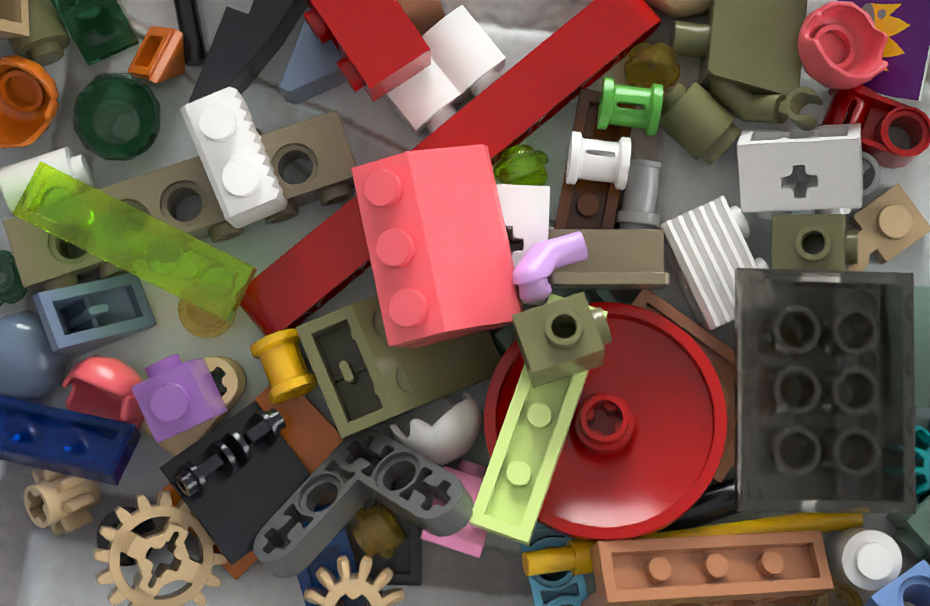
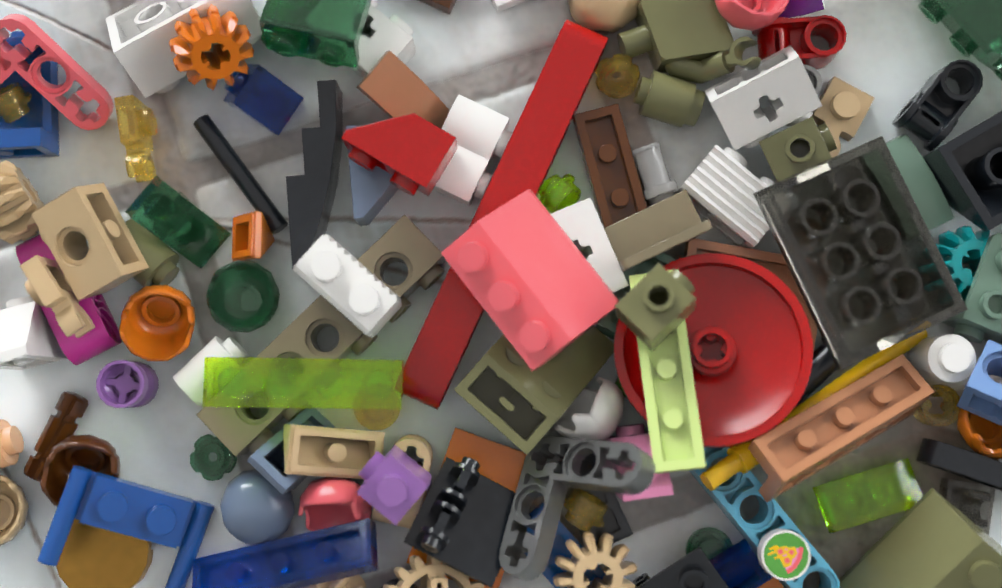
camera: 25 degrees left, 0 degrees up
(127, 329) = (328, 450): none -> tan slope
(284, 366) = (456, 421): yellow bush -> none
(540, 262) = (612, 255): lavender arm -> none
(598, 160) = (614, 161): white bush -> none
(648, 98) = (630, 100): bright green bush -> none

